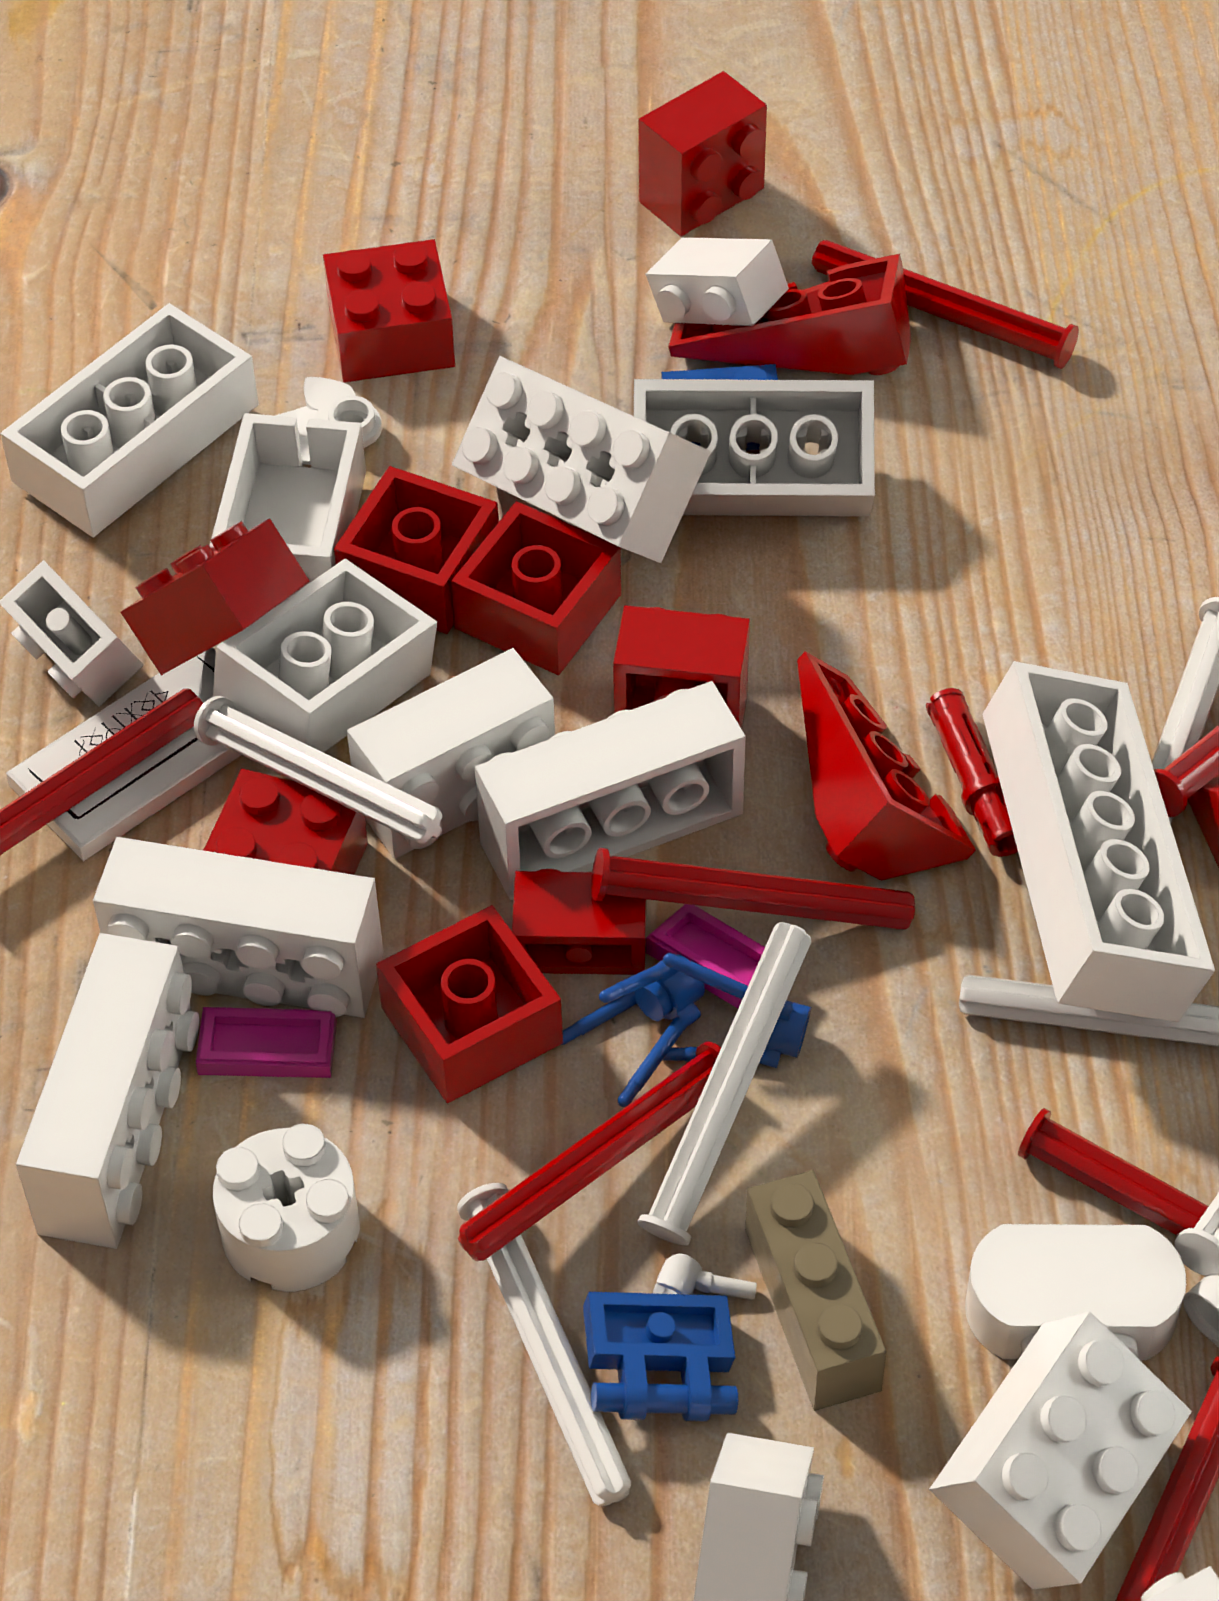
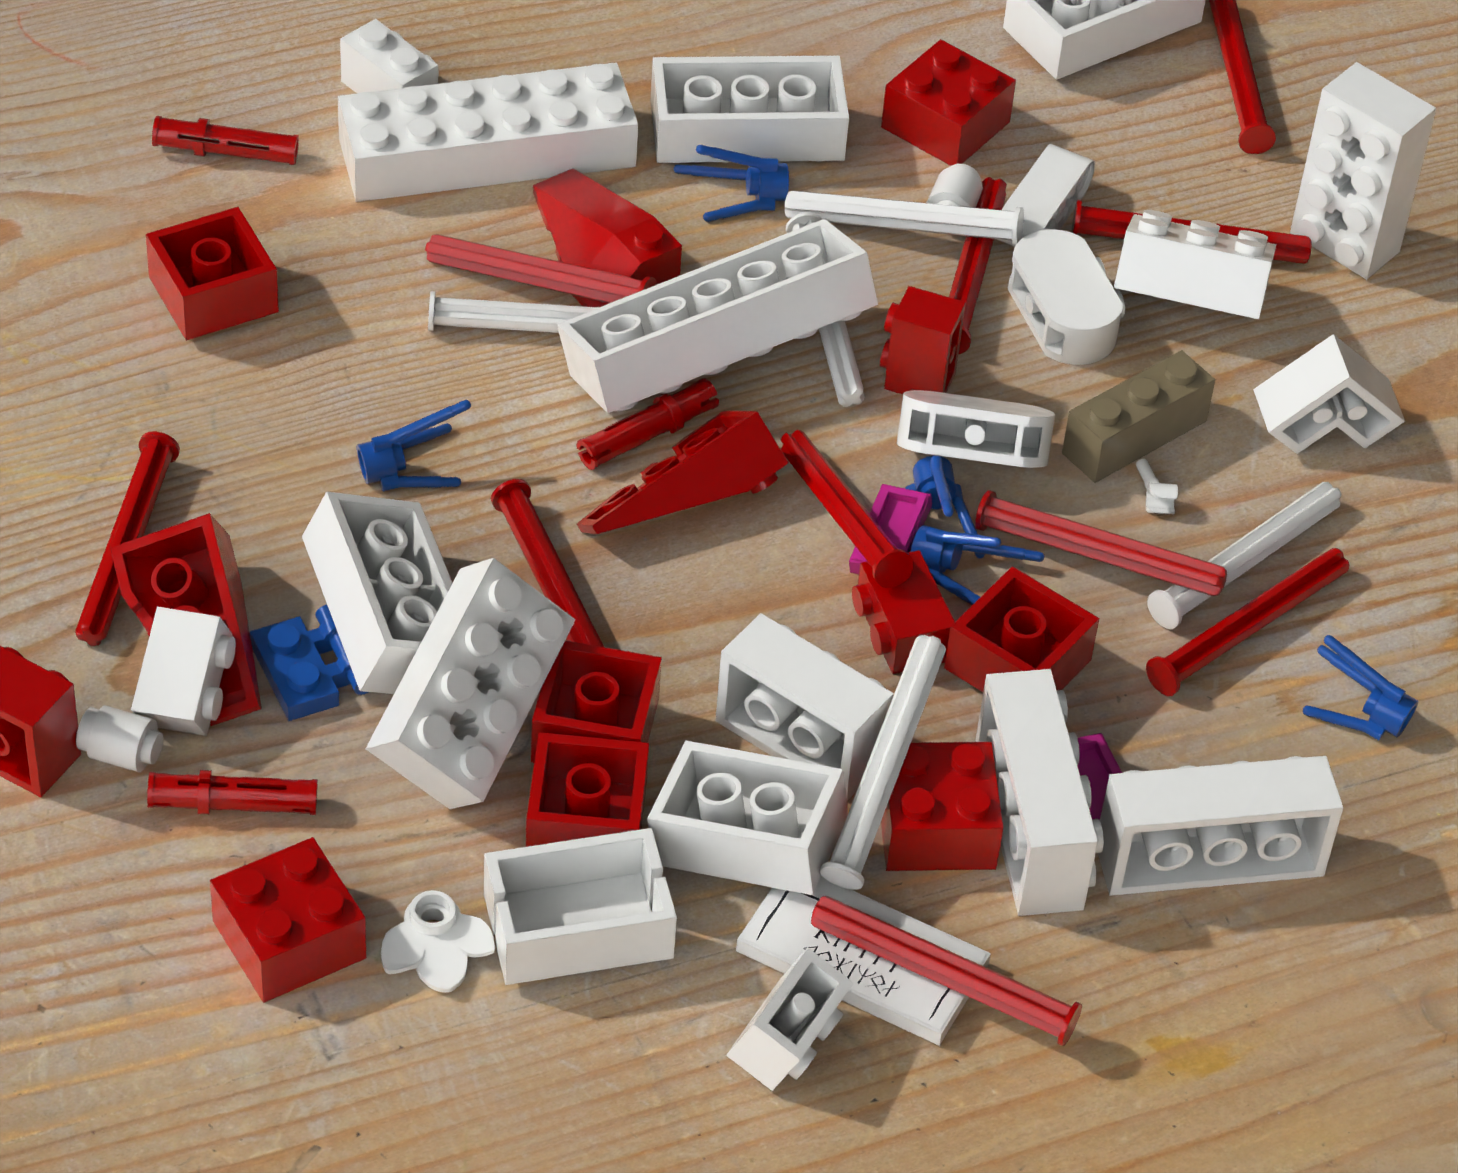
camera: 115 degrees left, 5 degrees down
(130, 419) = (515, 1065): white brick -> none
(213, 593) = (738, 885): red brick -> none
(224, 1387) = (1387, 705): none -> blue plant
(286, 1207) = (1240, 705): white brick -> none
(435, 1299) = (1168, 672): none -> red axle
(577, 297) = (231, 793): none -> red pin
(613, 786) = (760, 565): white brick -> none
(660, 1335) = (1228, 485): blue plate -> none
(663, 233) = (119, 738): none -> white brick
(677, 651) = (662, 584): red brick -> none
(727, 1085) = (1017, 476): white axle -> none
(797, 620) = (514, 502): none -> red axle
(834, 1075) = (975, 428): none -> white brick
(990, 524) = (384, 454): none -> blue plant
(993, 1058) = (922, 342): none -> red brick

